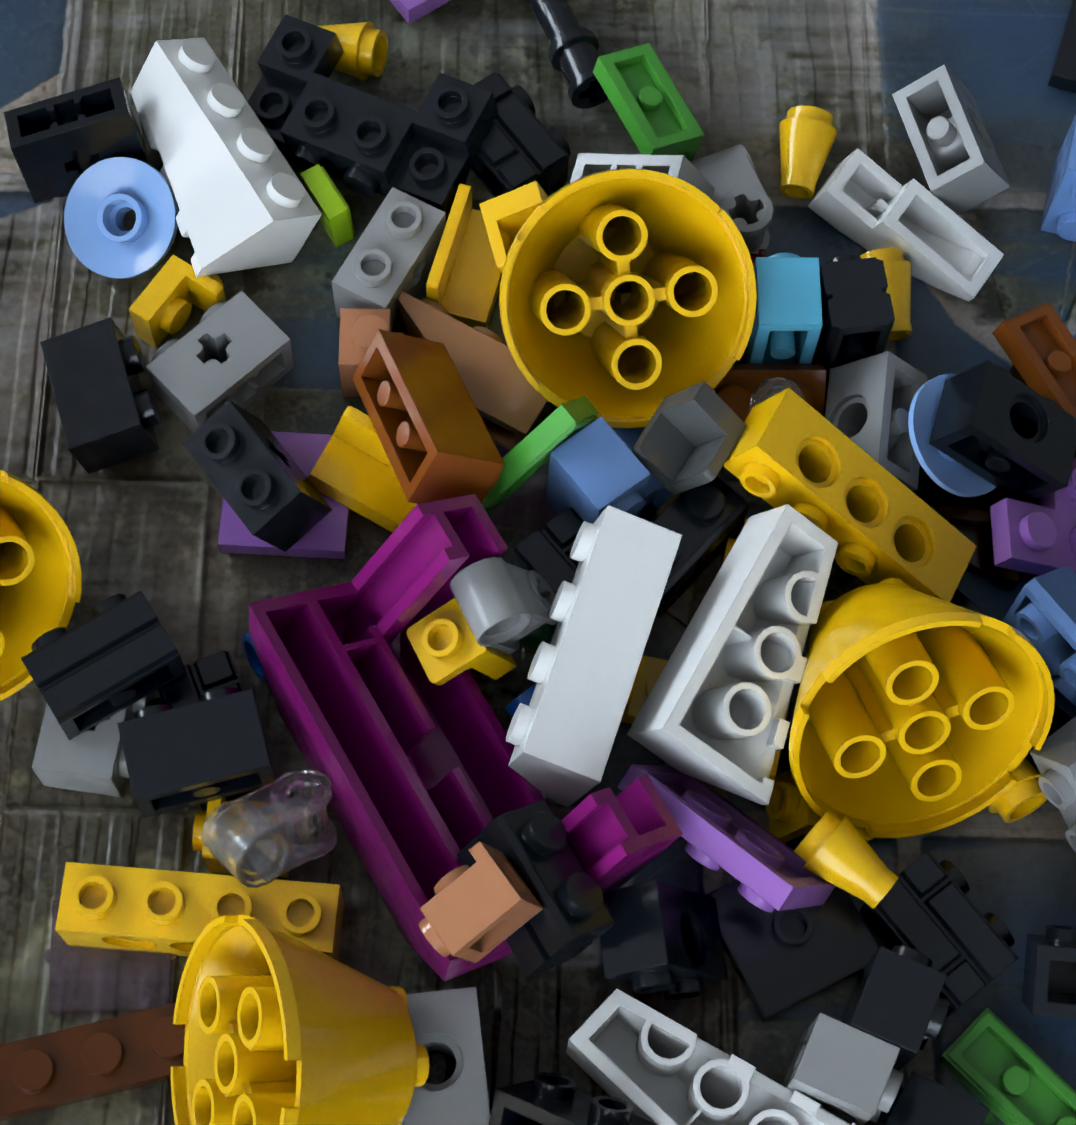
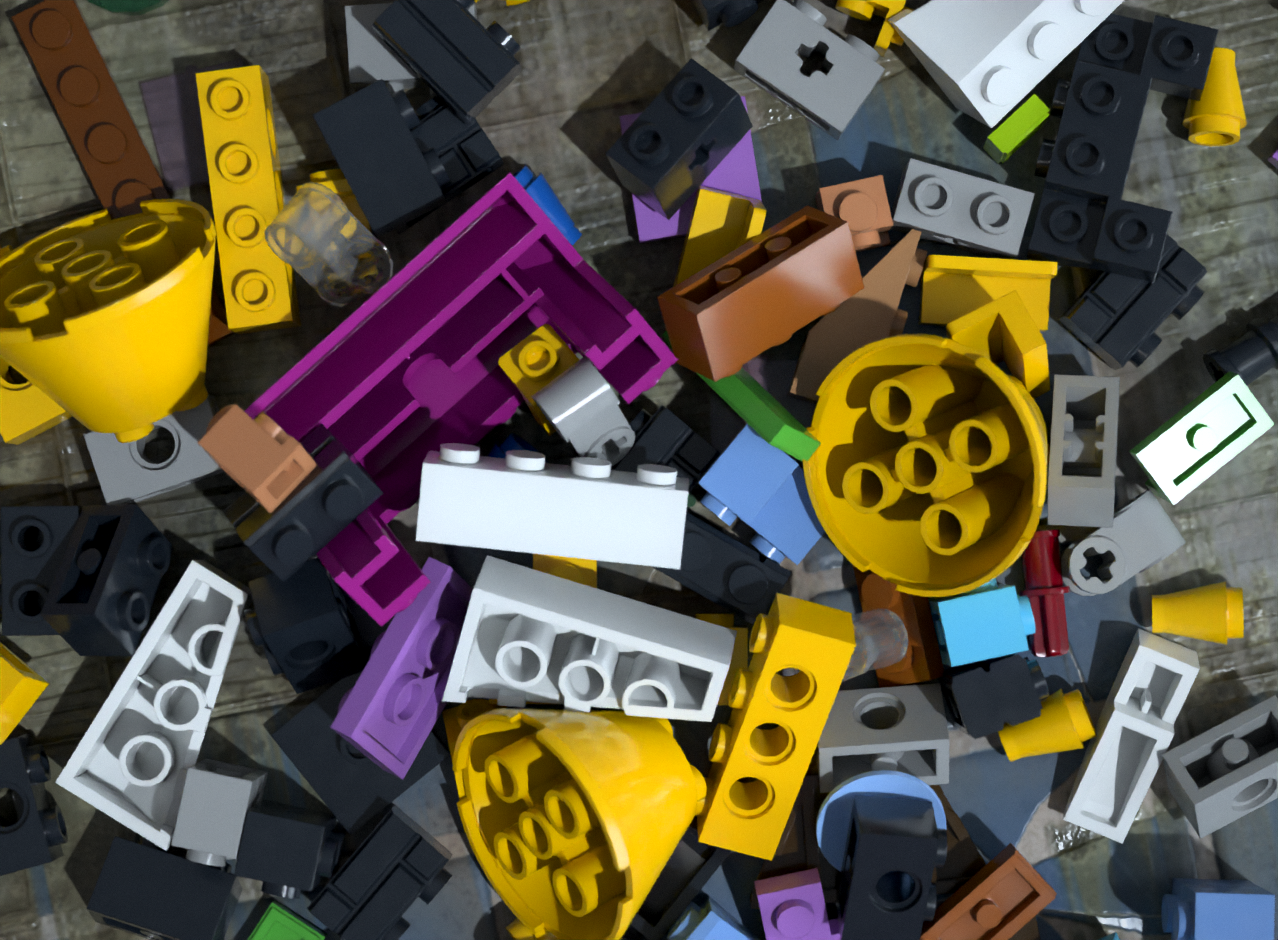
camera: 80 degrees right, 20 degrees up
(689, 438) = (796, 555): dark grey panel -> none
(845, 859) = (414, 780): yellow cone -> none

